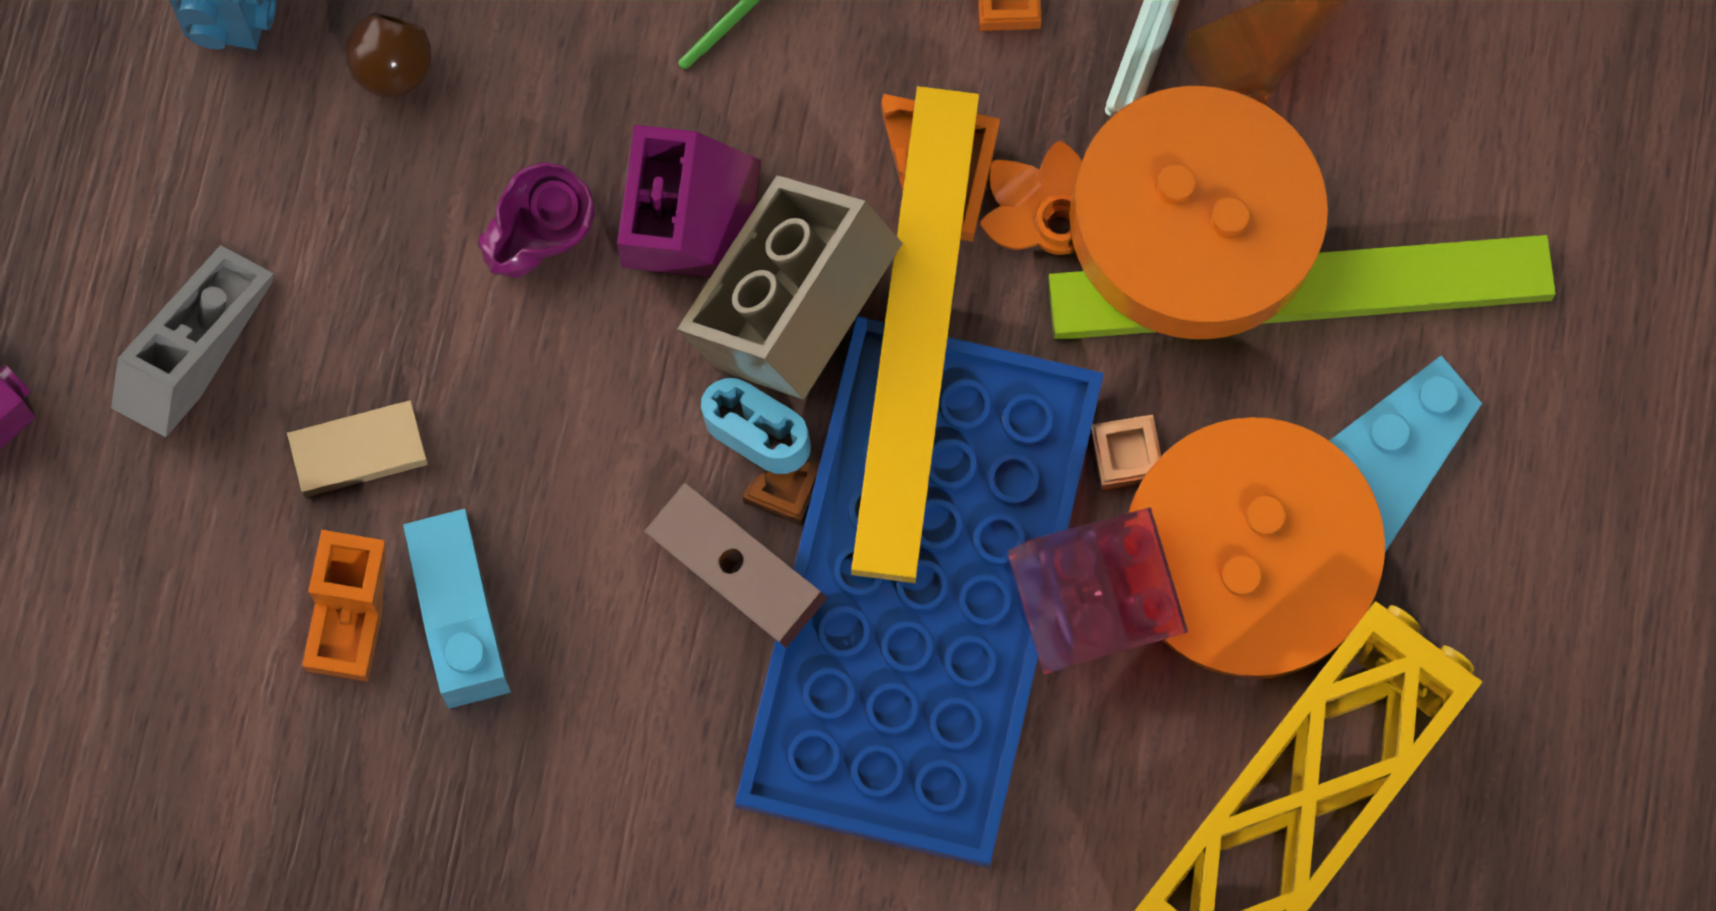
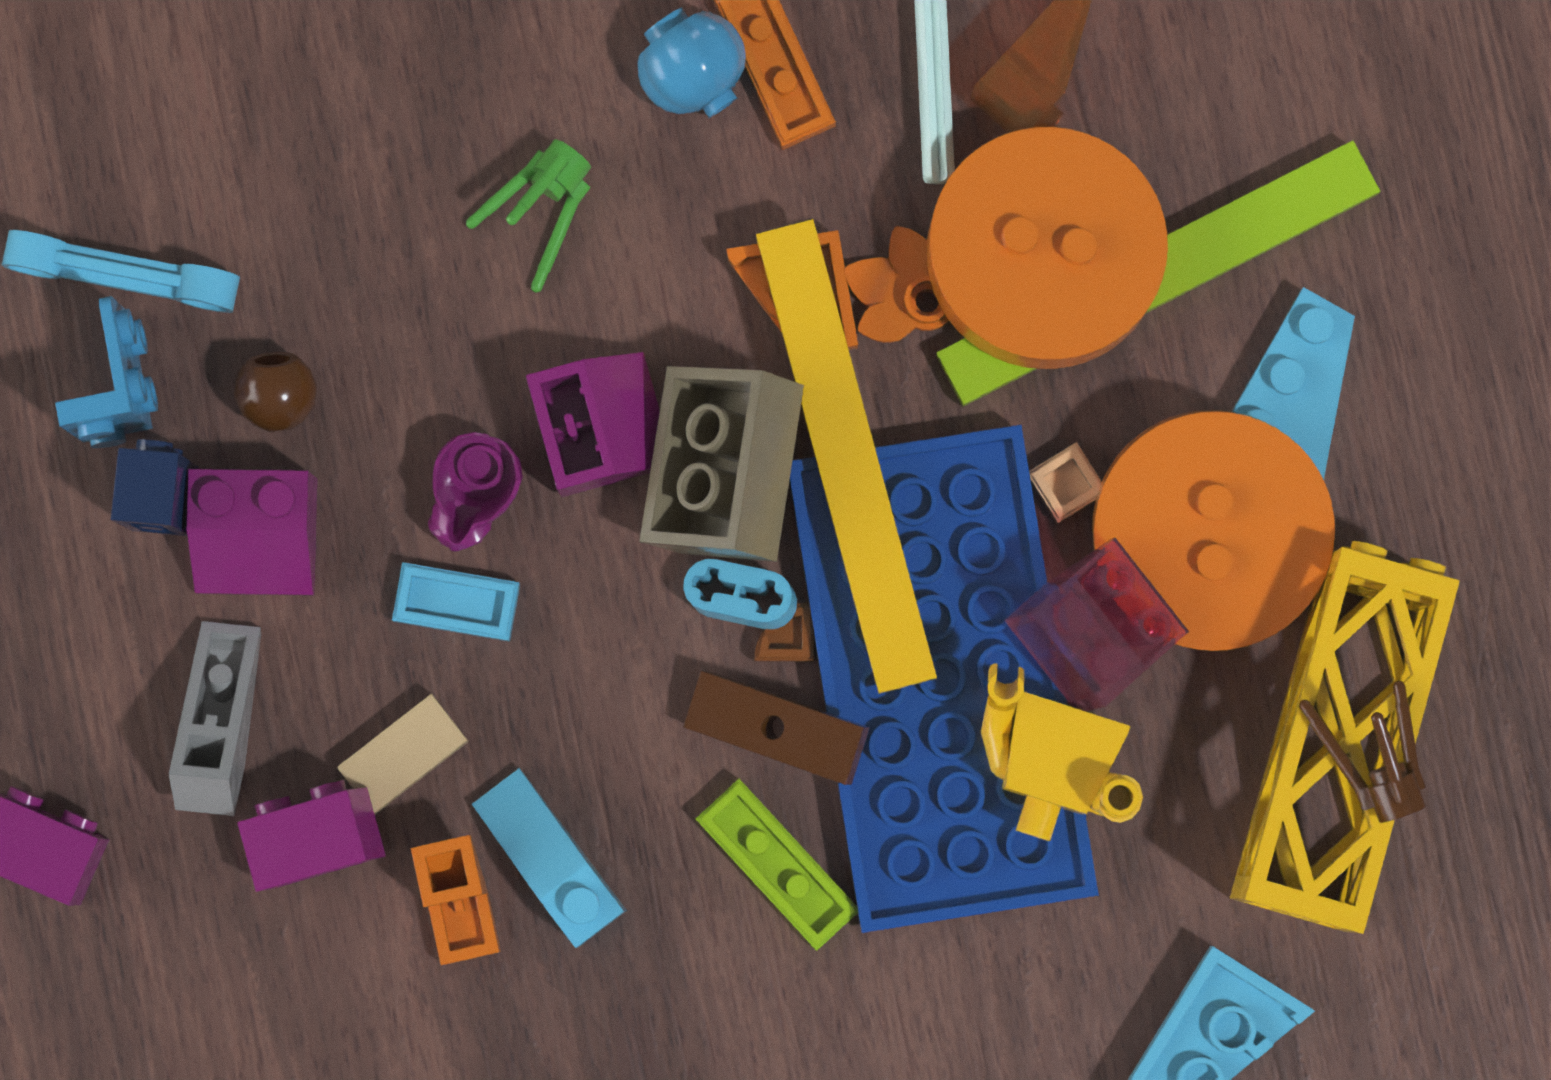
camera: 20 degrees left, 10 degrees up
(229, 95) = (151, 488): none -> dark blue brick
(230, 485) = (312, 837): none -> magenta brick
(307, 176) = (252, 531): none -> magenta slope
(474, 325) = (456, 602): none -> medium azure tile
(680, 707) = (777, 864): none -> lime tile
(1000, 699) = (1054, 757): none -> yellow torso
(1332, 855) = (1395, 786): none -> reddish brown plant

